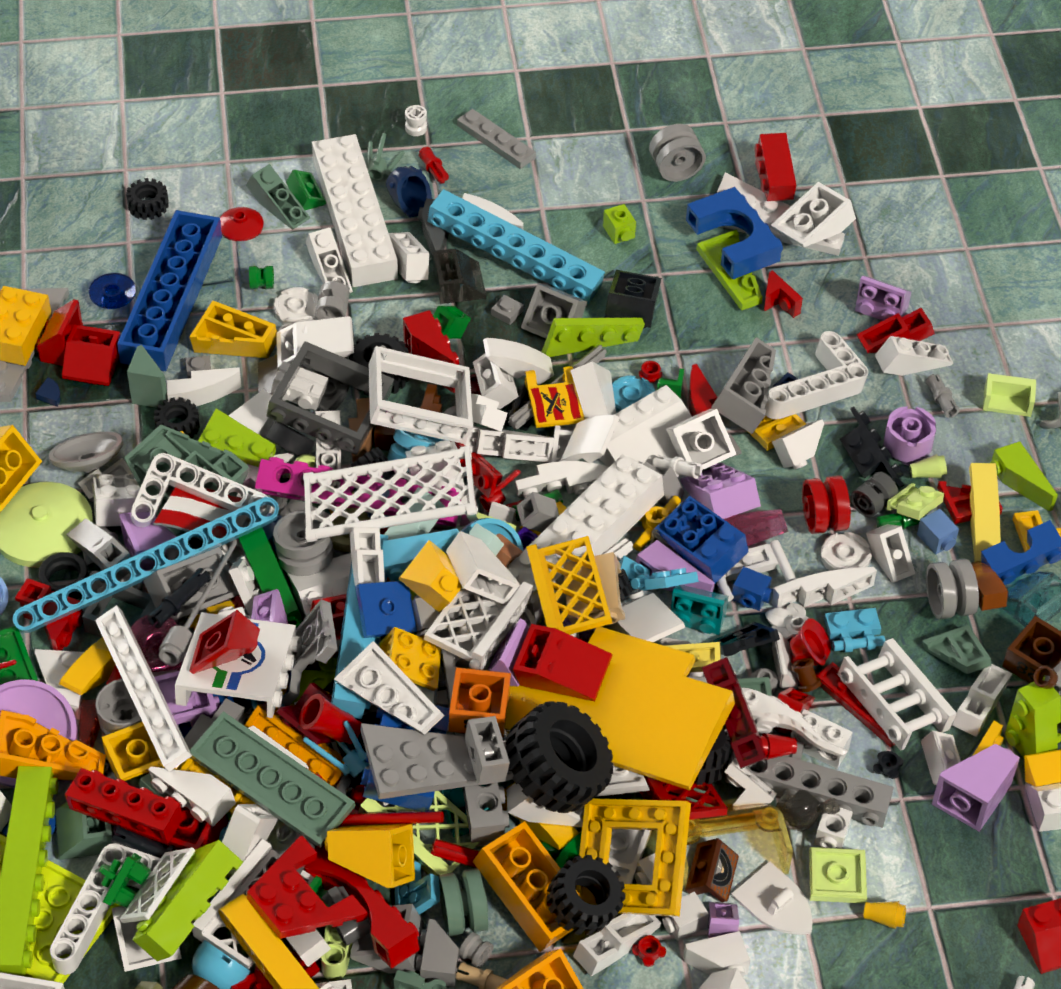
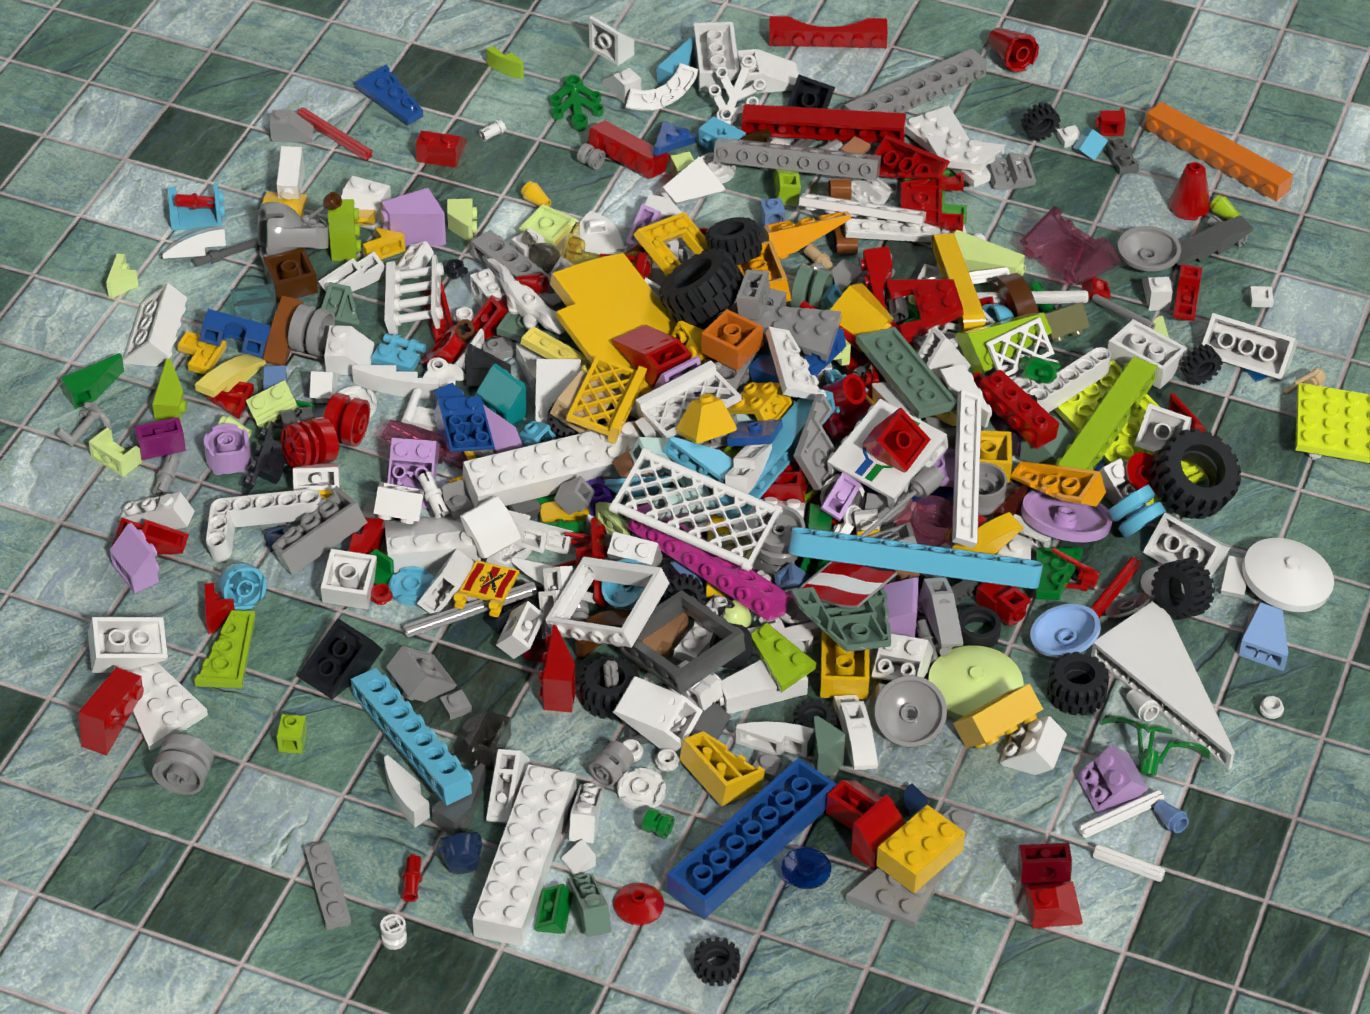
camera: 150 degrees left, 5 degrees down
(125, 412) = (857, 730): none -> white slope
(172, 604) = (912, 516): black pin -> none
(195, 487) = (848, 588): white beam -> none
(303, 229) = (579, 858): none -> white slope
(377, 167) = (467, 897): sand green plant -> none
(452, 321) = (520, 698): green brick -> none
(480, 569) = (672, 408): white slope -> none
(518, 358) = (490, 628): white slope -> none
(584, 334) = (415, 634): lime wing -> none
(664, 579) = (520, 392): medium azure plate -> none
(681, 350) = (348, 579): none -> white slope
(732, 209) = (198, 639): blue arch -> none
(740, 722) = (546, 294): dark red slope -> none
(776, 317) = (242, 584): none -> medium azure cylinder
(828, 699) = (464, 313): none -> white plate
(835, 455) = (310, 442): none -> red wheel
(902, 599) = (346, 348): none -> white slope
(938, 831) = (461, 217): none -> yellowish green slope
(987, 423) = (160, 438): none -> magenta slope

